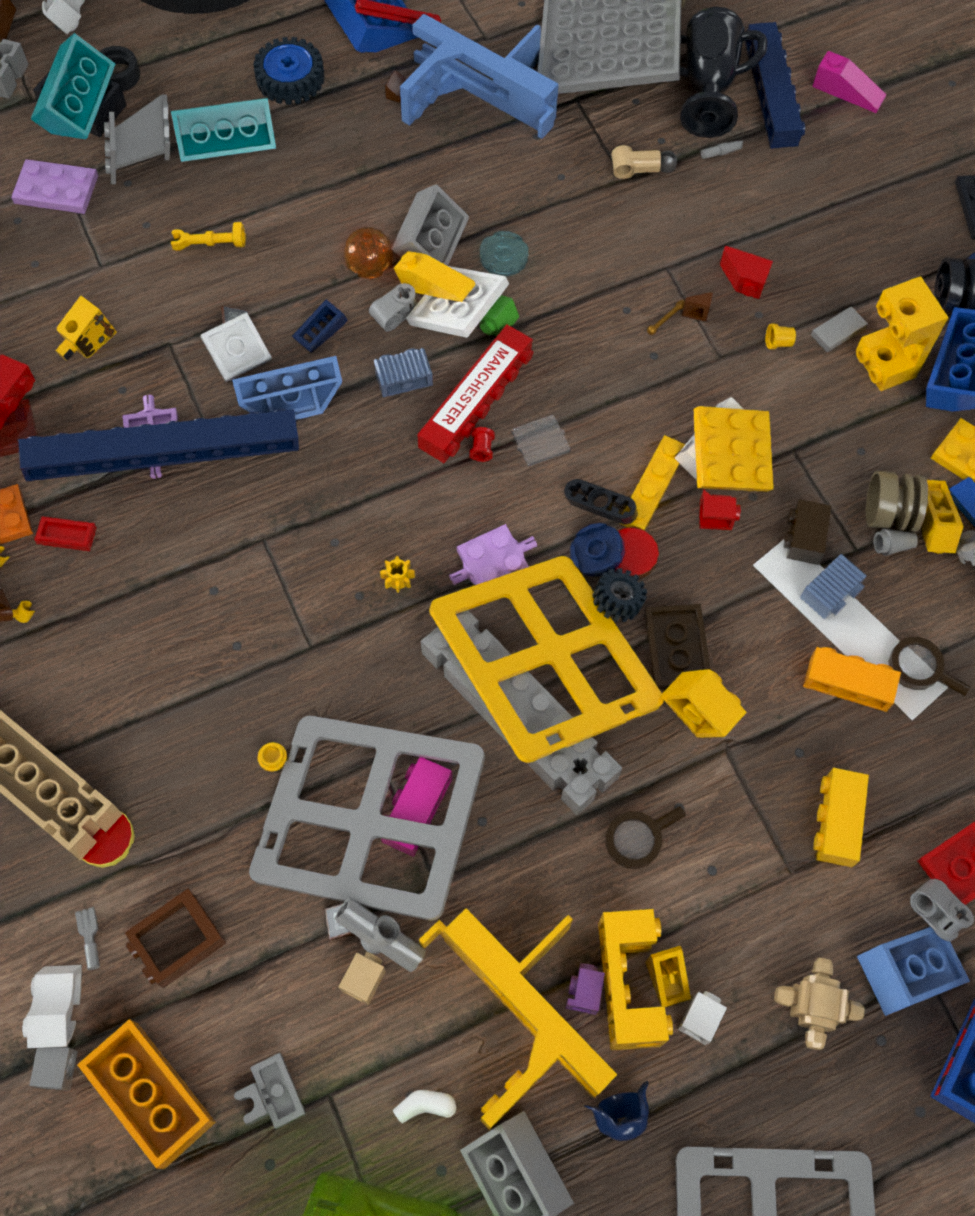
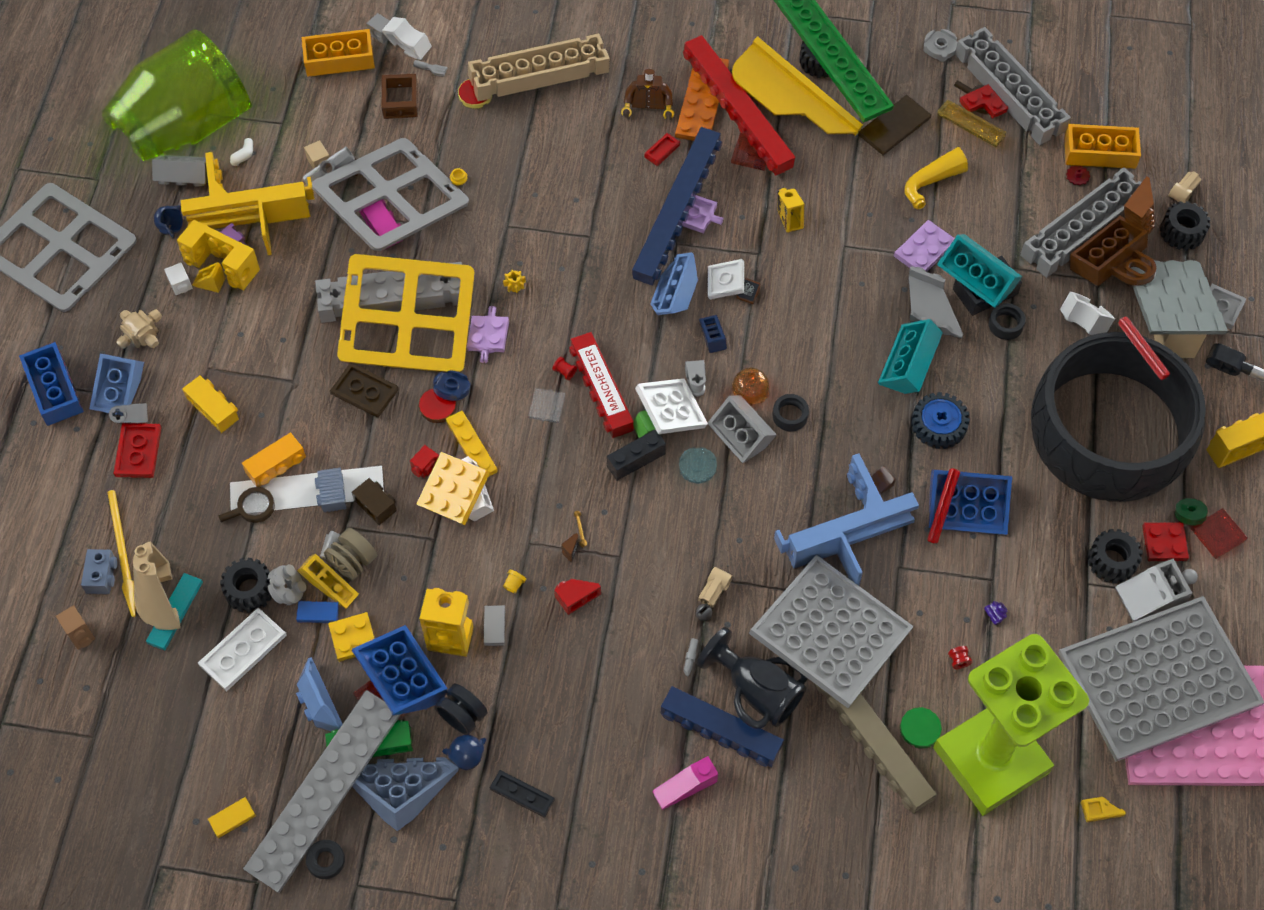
camera: 125 degrees right, 5 degrees down
(237, 237) = (813, 321): yellow piece -> none
(272, 1093) = (299, 100): light grey plate -> none
(374, 185) = (790, 425): none -> black tyre
(403, 372) = (644, 355): sand blue brick -> none
(432, 277) = (698, 400): yellow slope -> none
(544, 306) = (636, 455): none -> black brick
(607, 511) = (465, 408): black beam -> none
(613, 603) = (415, 386): black bush -> none
(636, 838) = (283, 308): piece -> none
(704, 703) = (317, 366): yellow brick -> none

